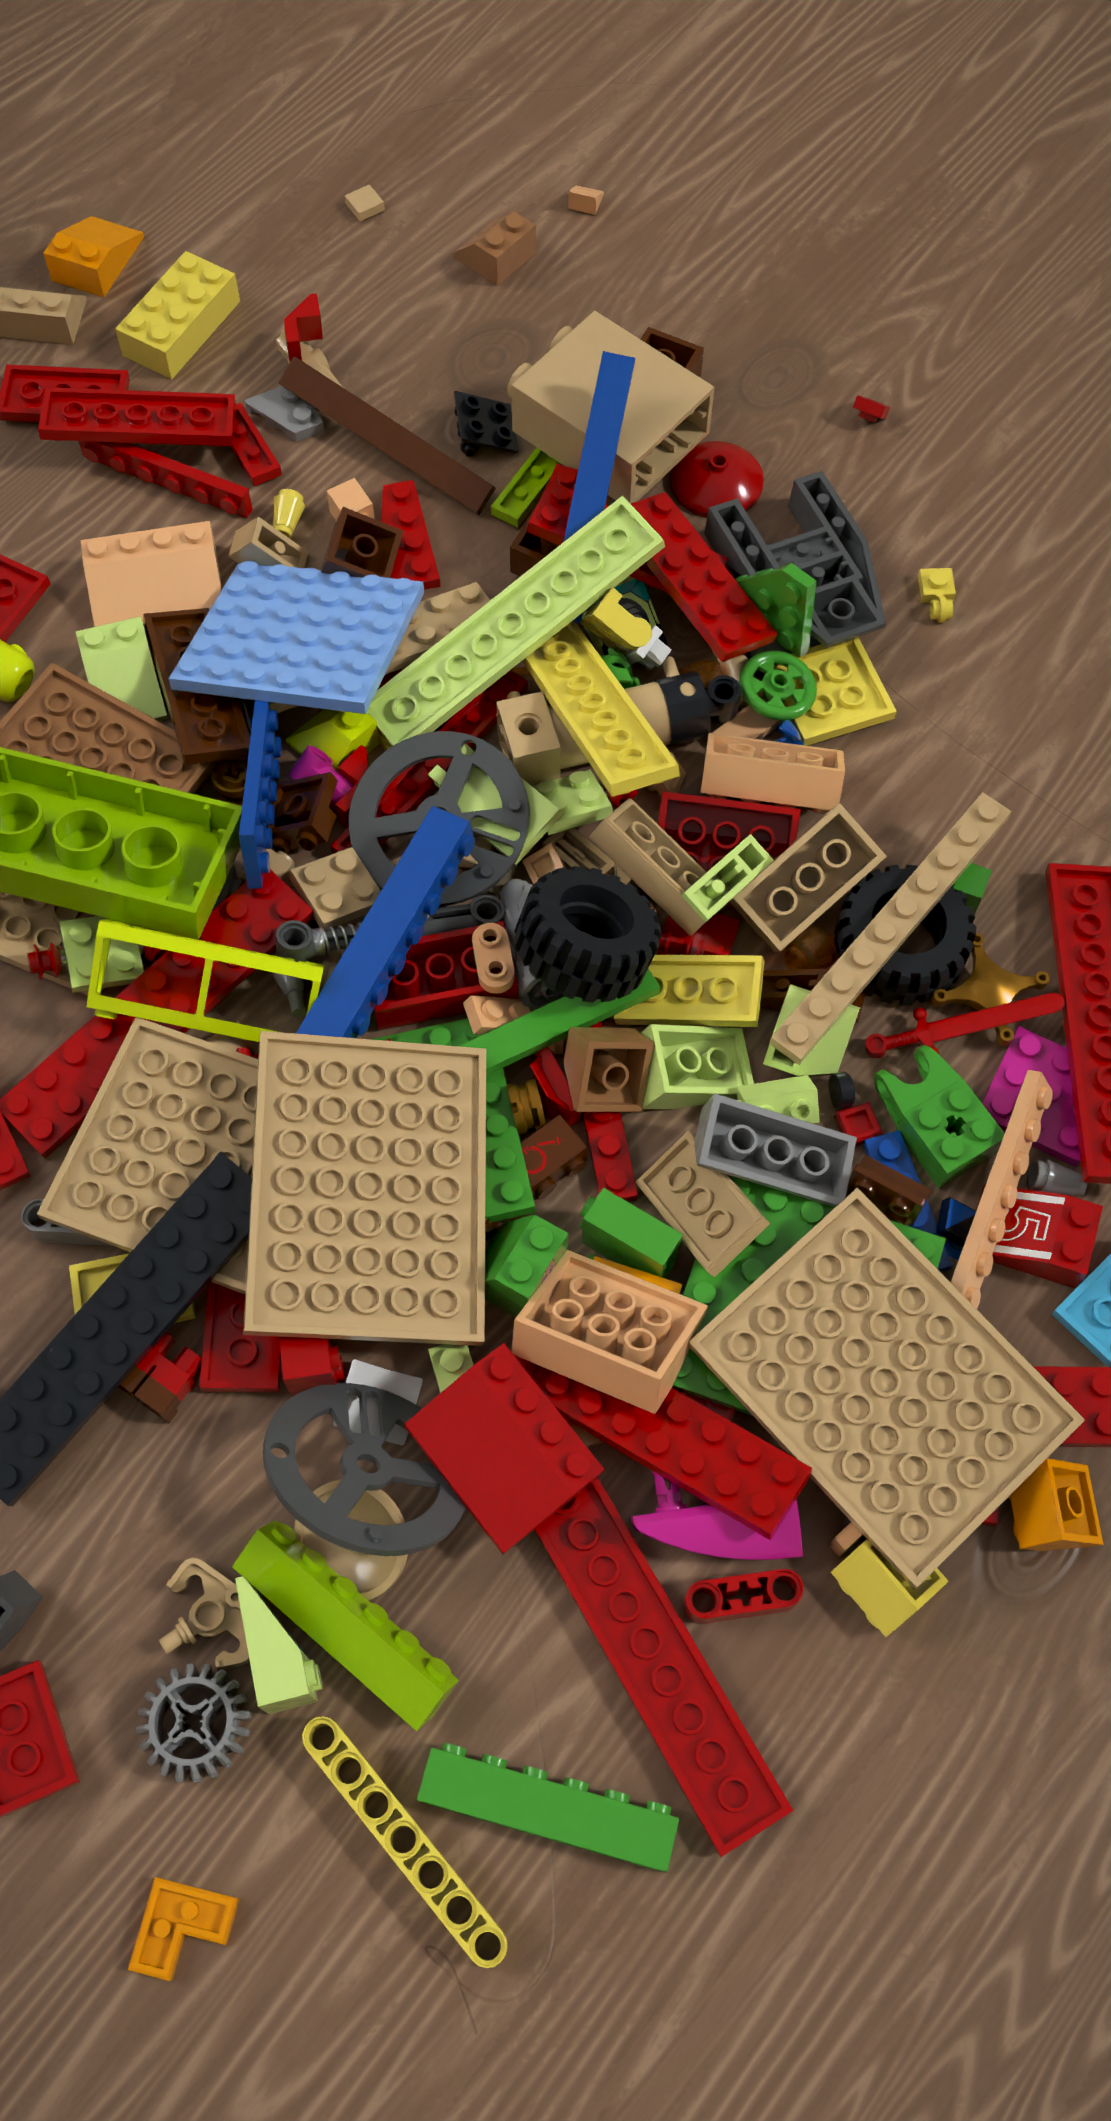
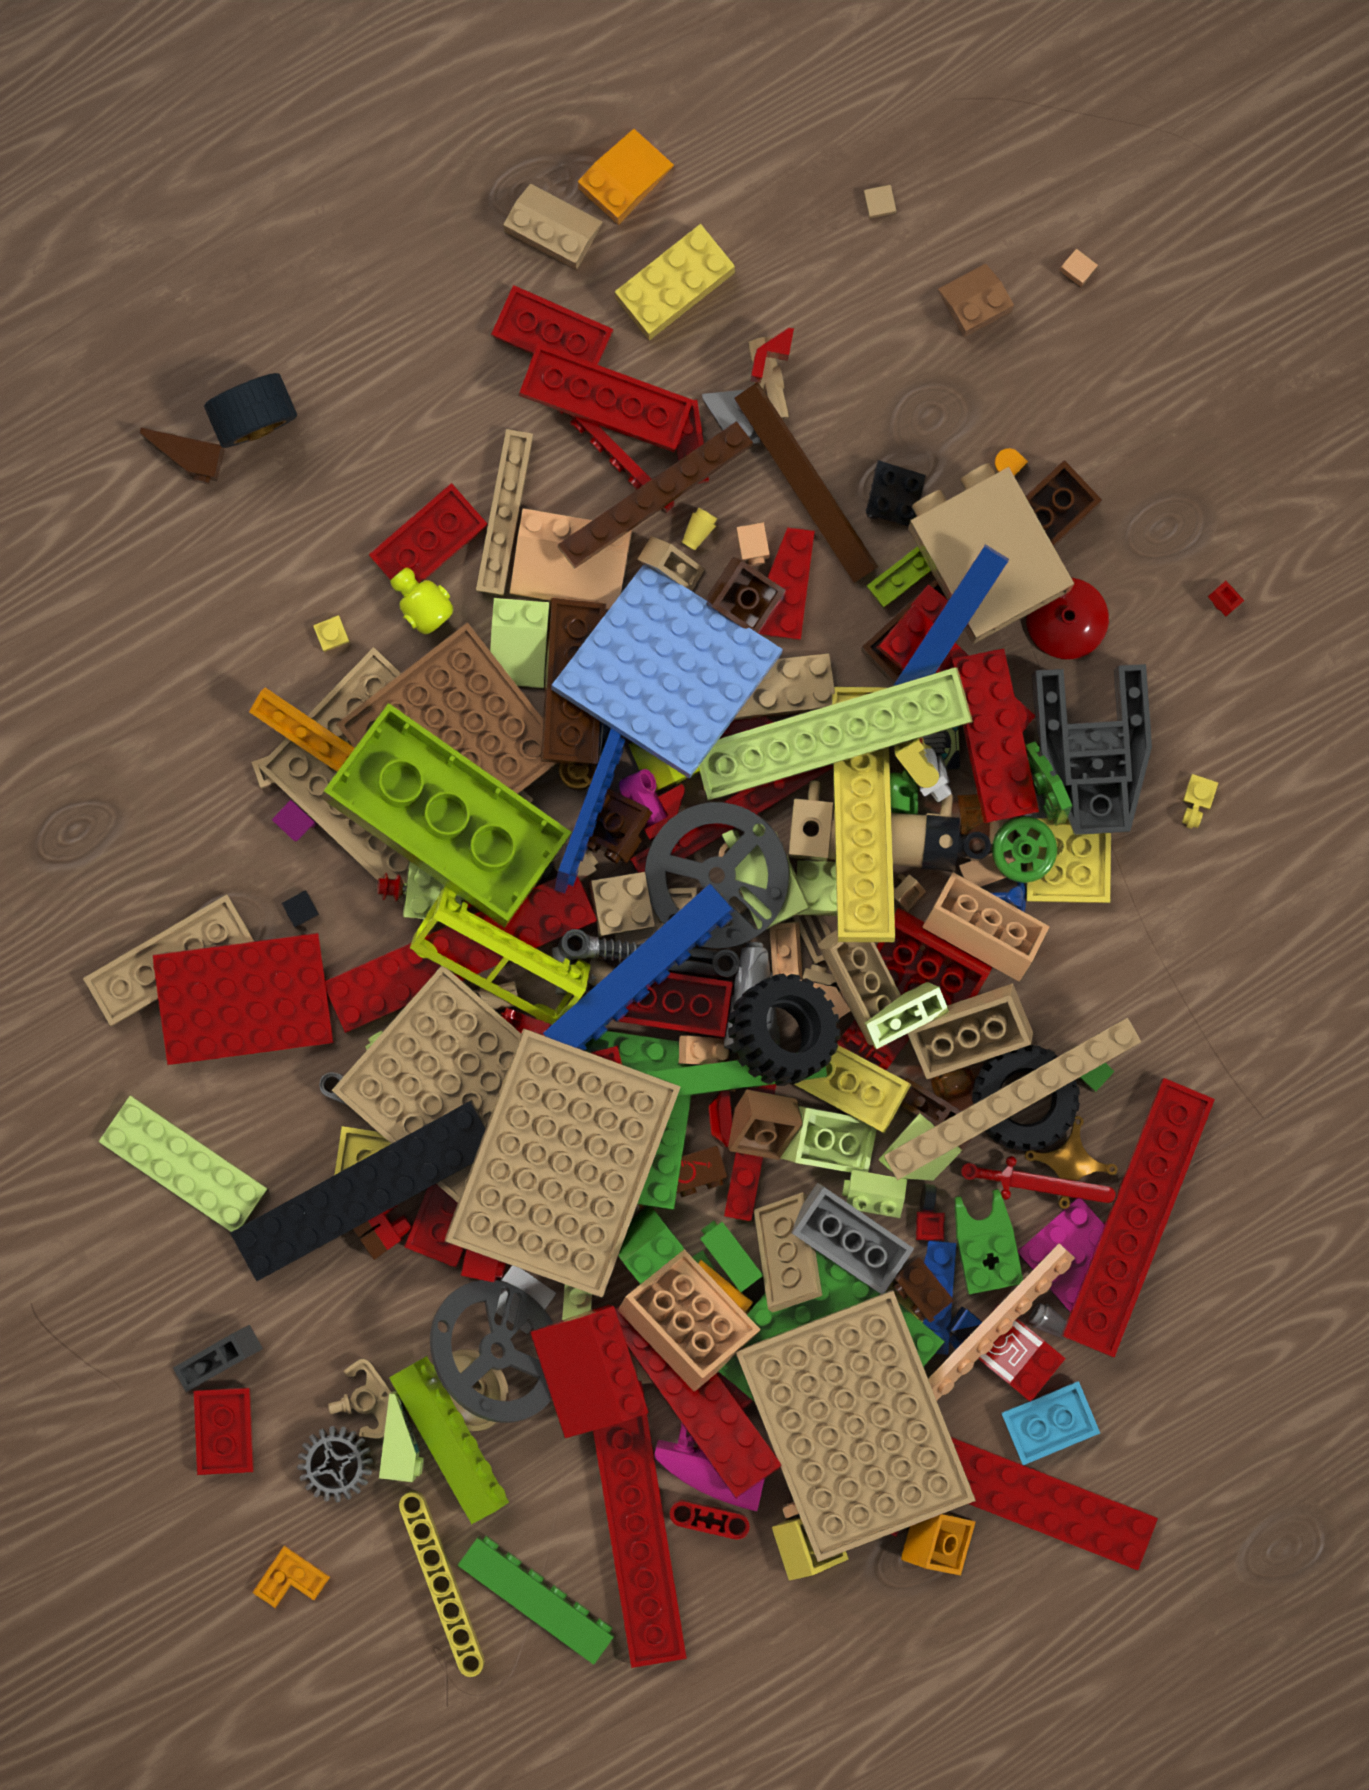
camera: 25 degrees right, 20 degrees up
(64, 563) = (504, 512): none -> tan plate
(222, 485) = (655, 495): none -> reddish brown plate
(493, 955) = (714, 1012): light nougat plate -> none
(526, 1106) = (696, 1128): pearl gold wheel -> none

